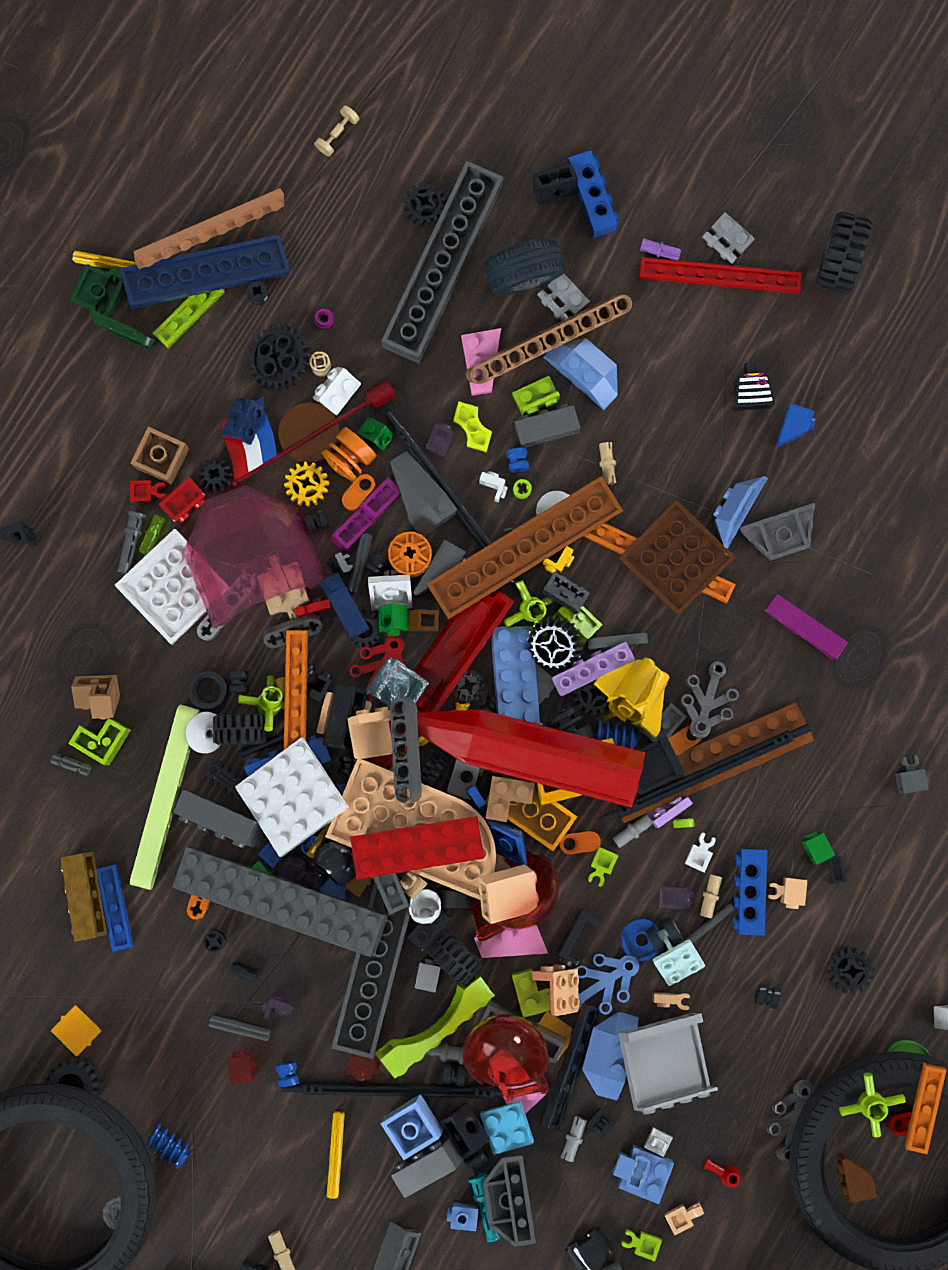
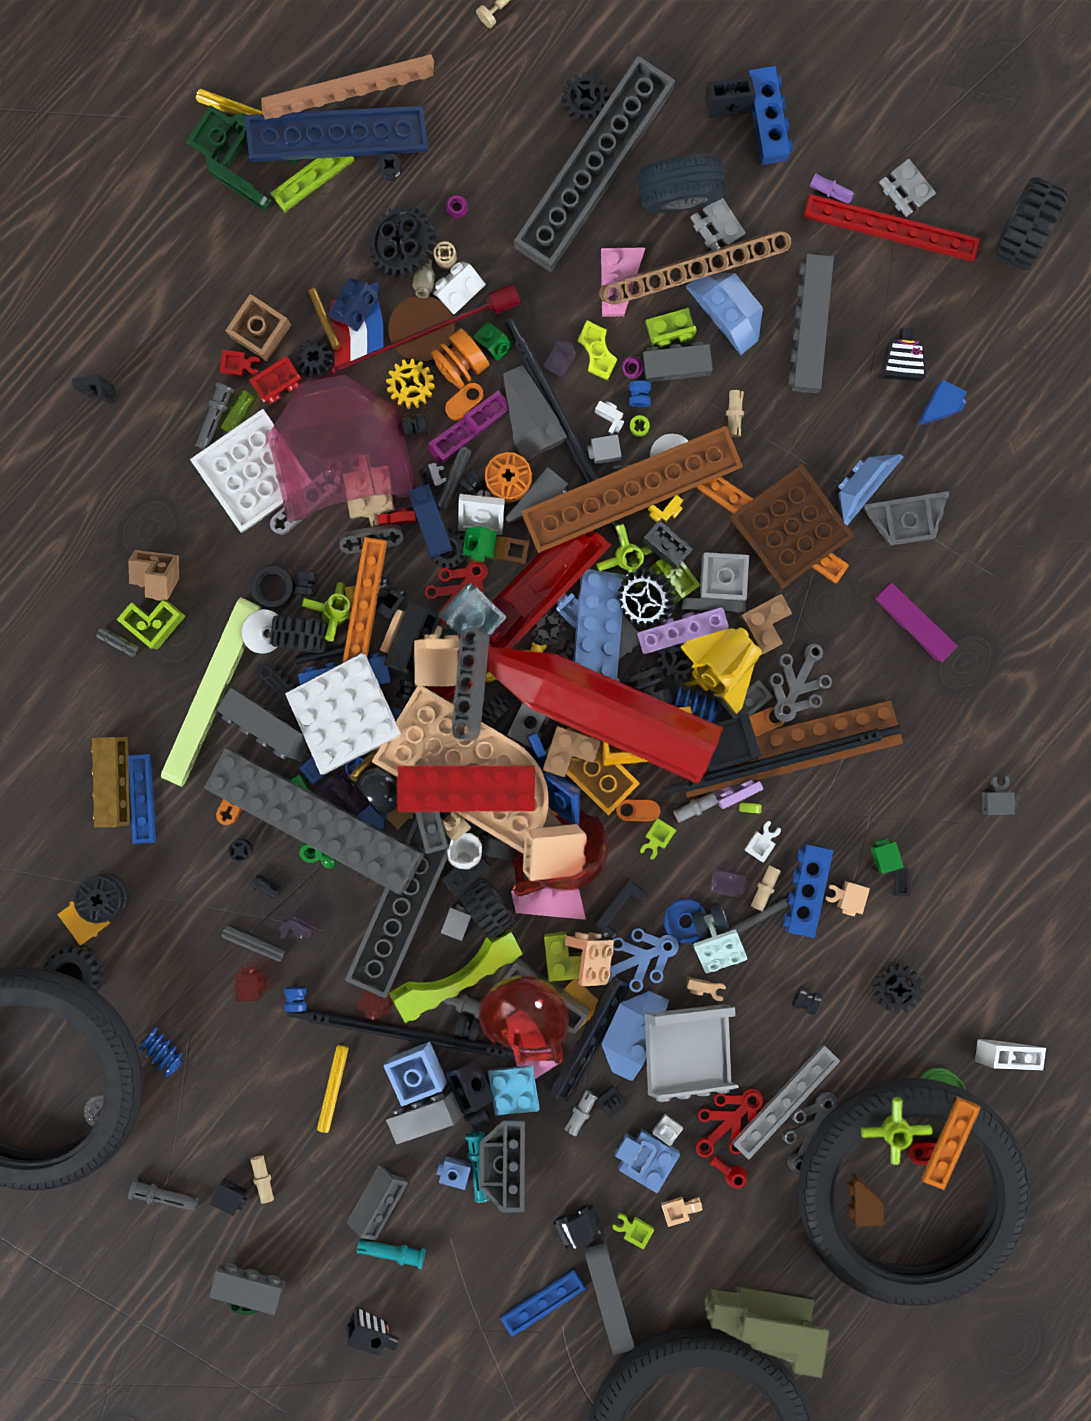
camera: 15 degrees right, 5 degrees up
(101, 1001) = (113, 893): none -> black wheel
(219, 438) = (324, 318): none -> pearl gold bar
(284, 934) = (314, 855): none -> green plate
(304, 389) = (424, 280): none -> dark tan plant
(484, 666) = (568, 608): none -> medium blue bracket
(494, 515) = (604, 449): none -> light grey brick
(502, 436) = (626, 367): none -> magenta plate
(622, 613) = (724, 576): none -> light grey container
(663, 648) = (760, 622): none -> medium nougat brick
(664, 372) = (812, 323): none -> dark grey brick
(716, 1122) = (731, 1119): none -> red plant
(764, 1096) = (785, 1101): none -> light grey plate

